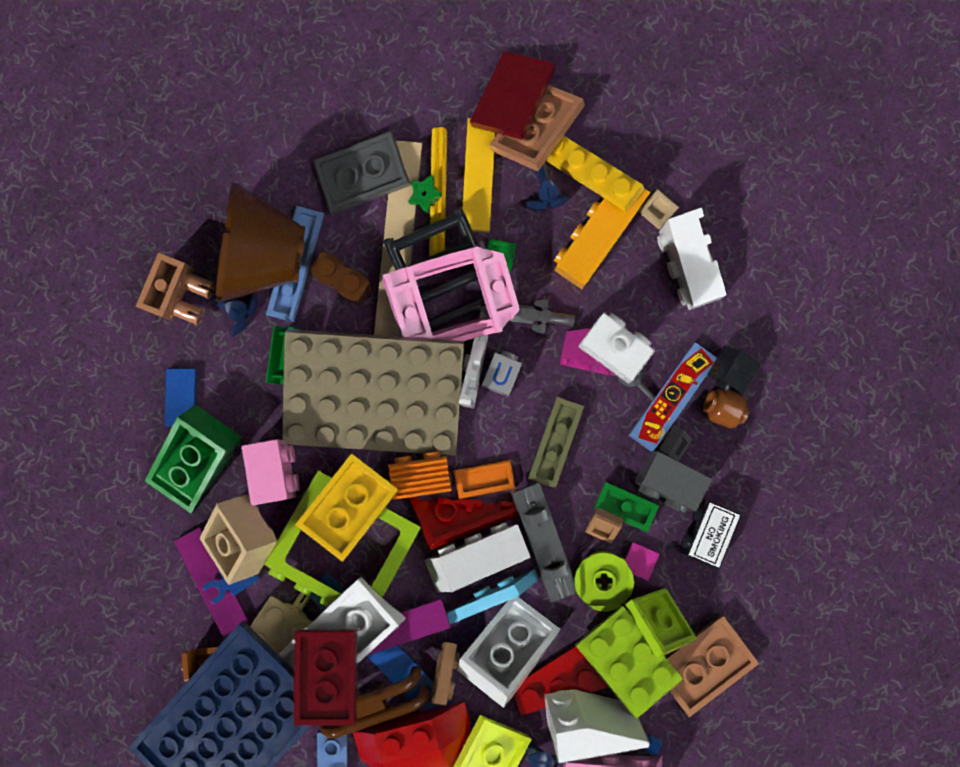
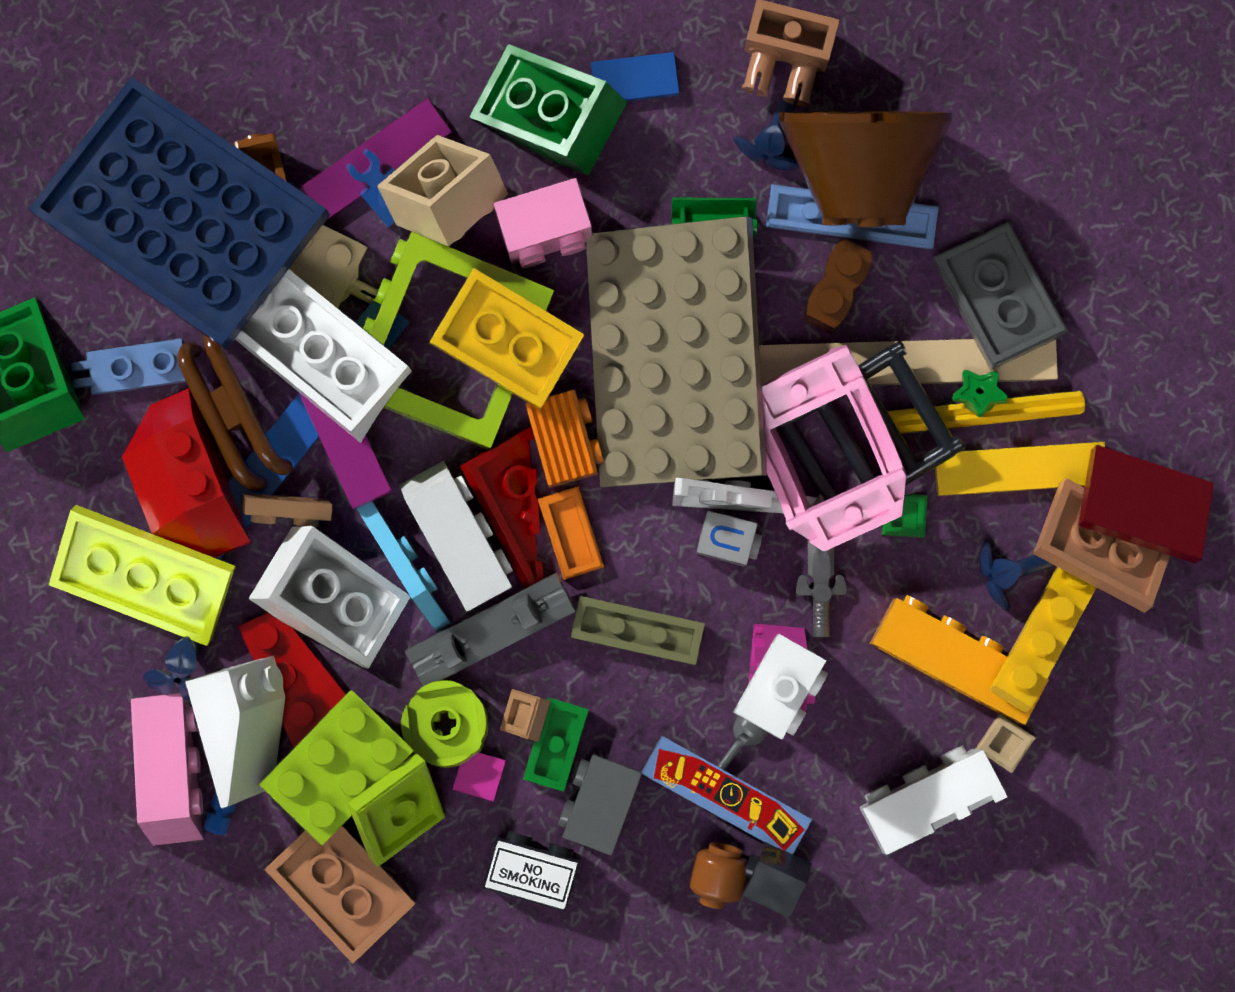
camera: 80 degrees right, 0 degrees up
(325, 677) = (267, 339): dark red tile -> none
(675, 443) = (656, 806): dark grey plate -> none

